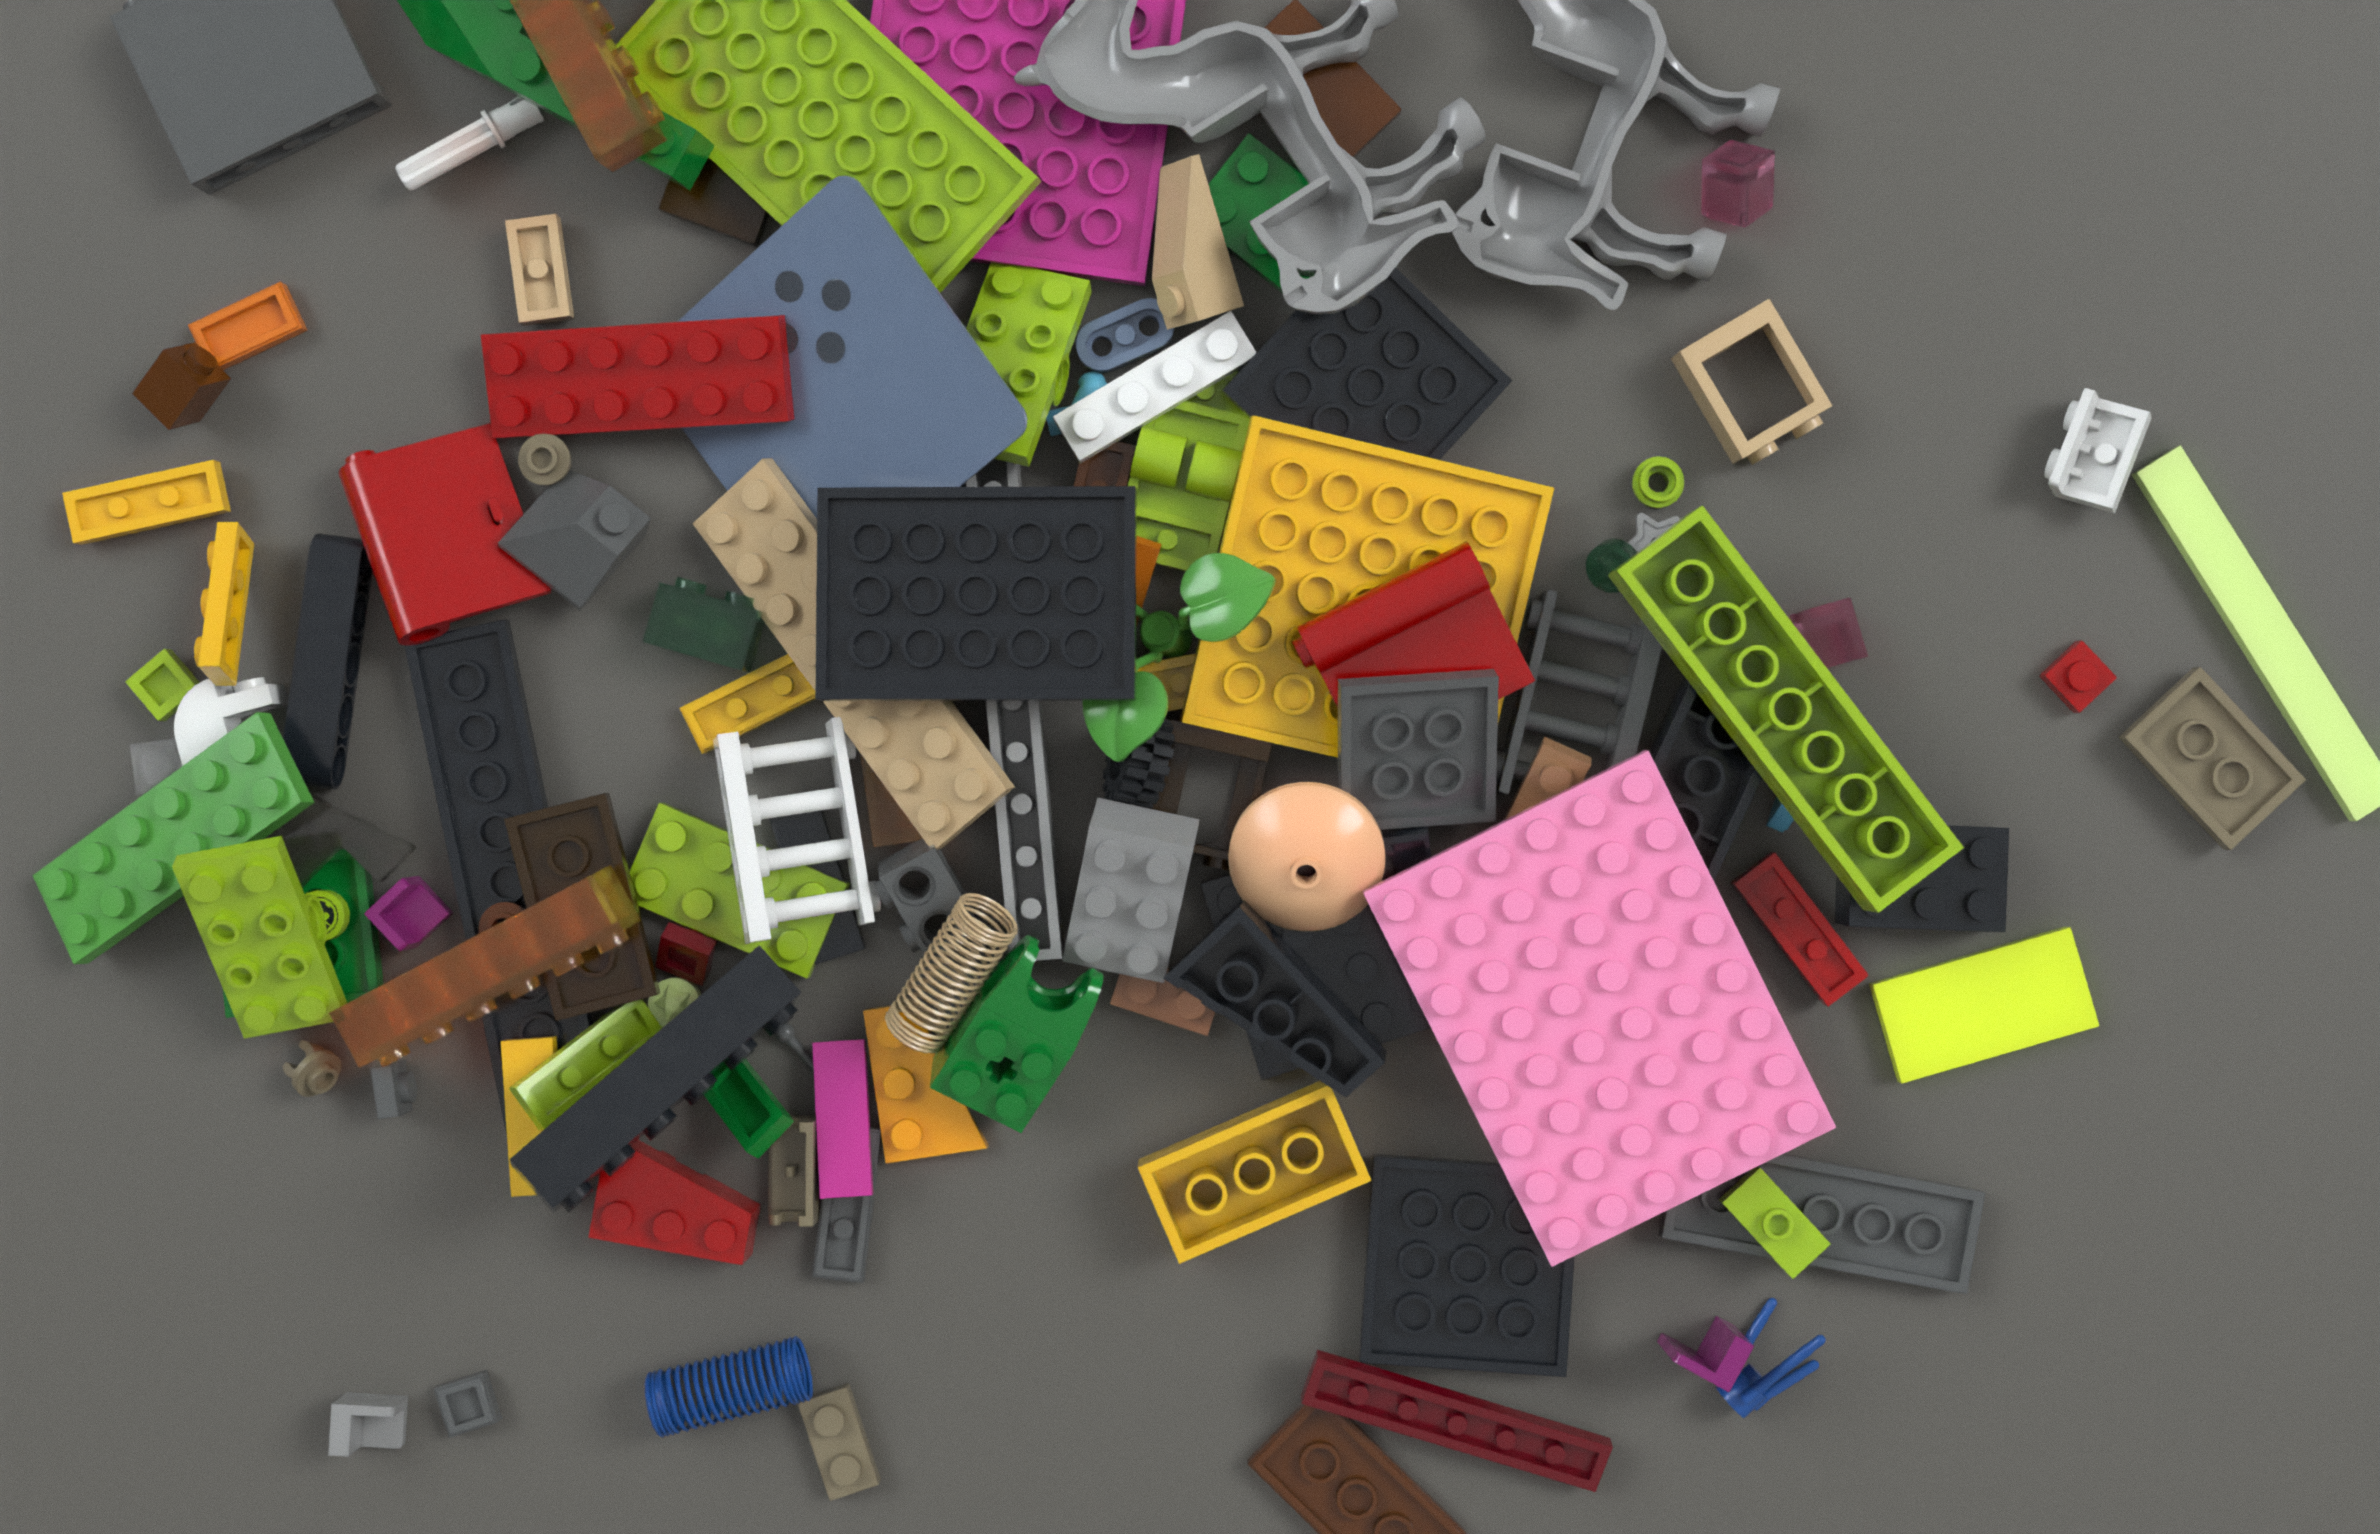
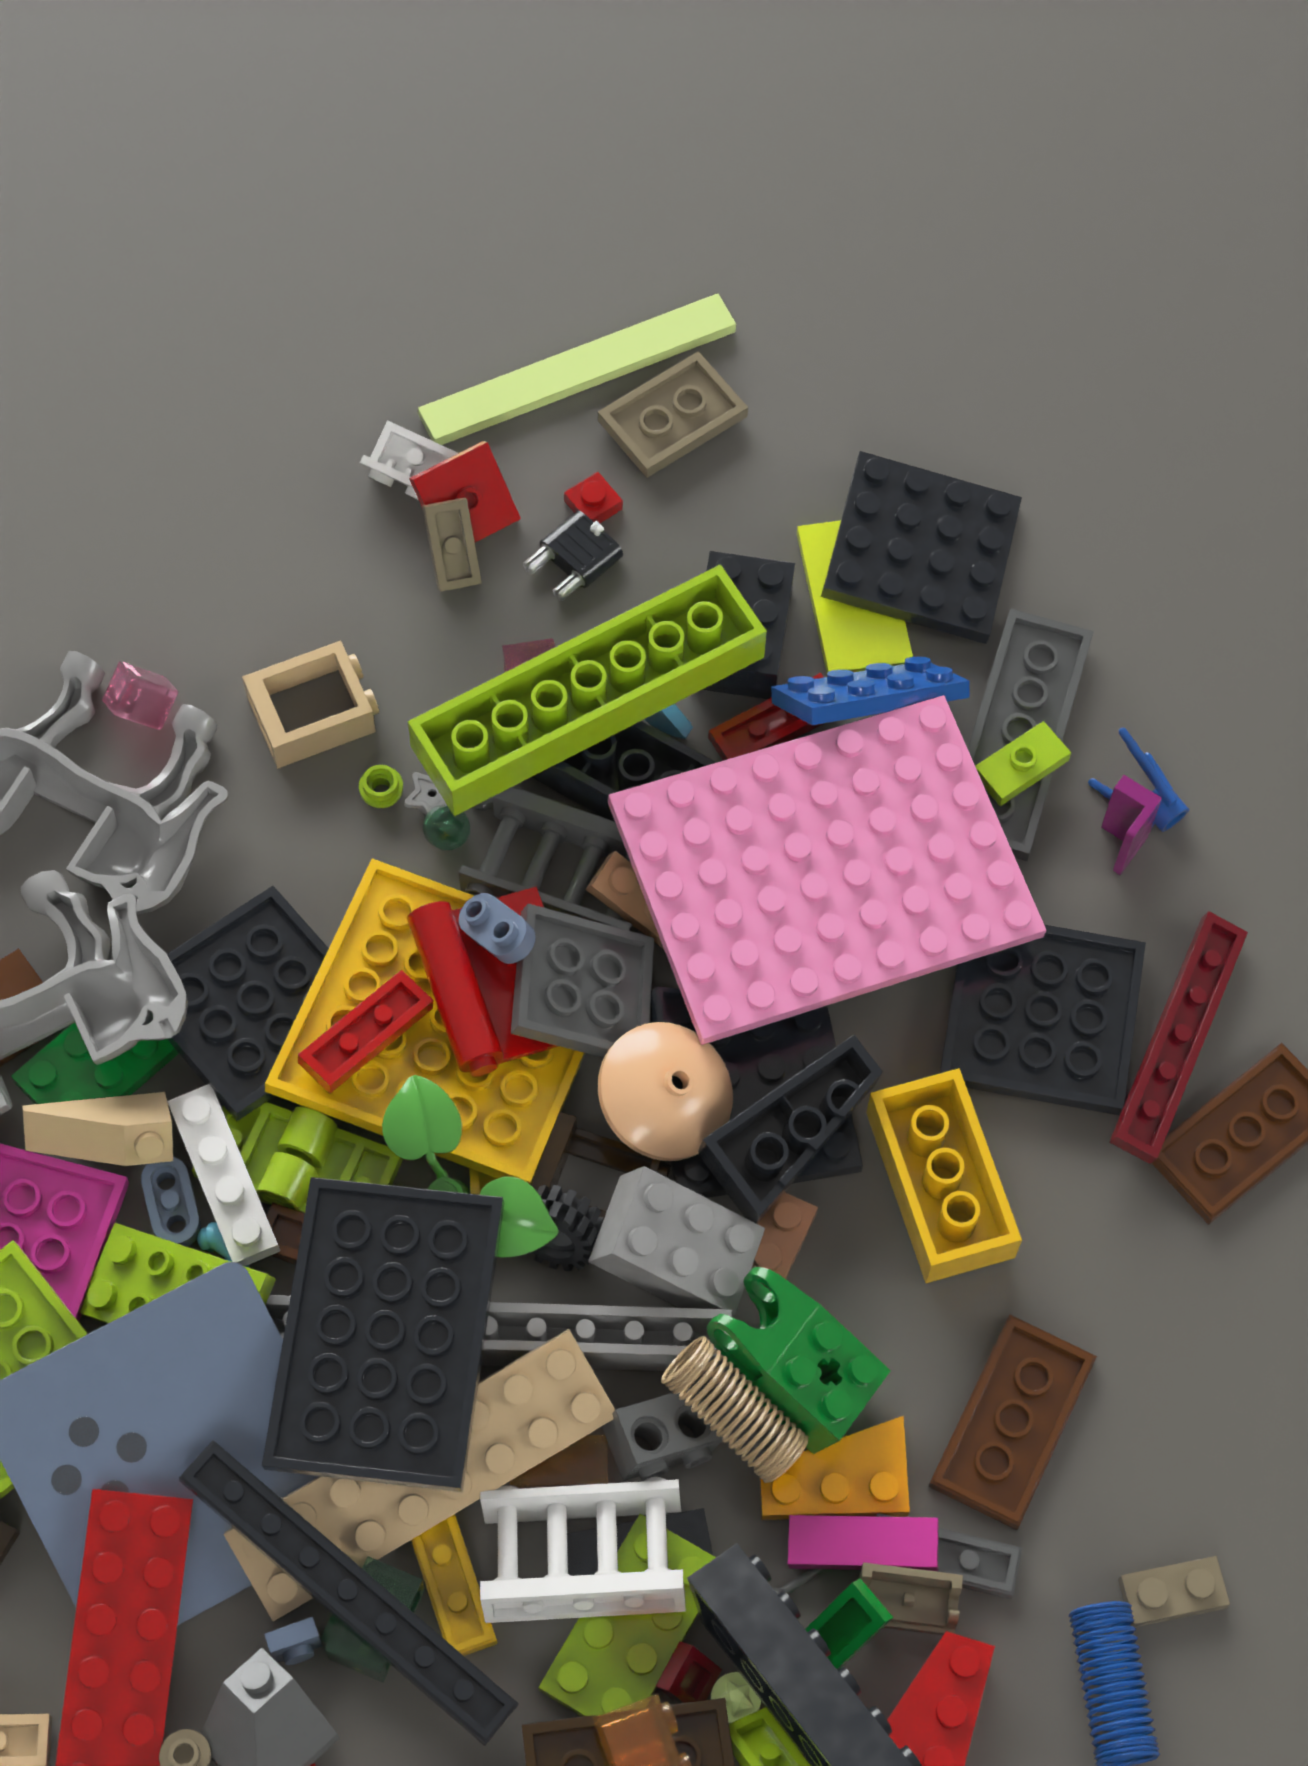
camera: 90 degrees left, 25 degrees down
(671, 549) = (294, 1642): none -> sand blue plate
(715, 595) = (349, 1592): none -> black tile
(999, 1263) = (1012, 1422): none -> reddish brown tile
(1326, 516) = (365, 1031): none -> red plate
(1467, 642) = (497, 928): none -> sand blue plate
(1837, 1037) = (868, 692): none -> blue plate
(1984, 516) = (452, 544): none -> dark tan plate
(2004, 669) = (579, 550): none -> black piece
(2051, 523) = (477, 478): none -> red plate
(2060, 1080) = (922, 547): none -> black plate

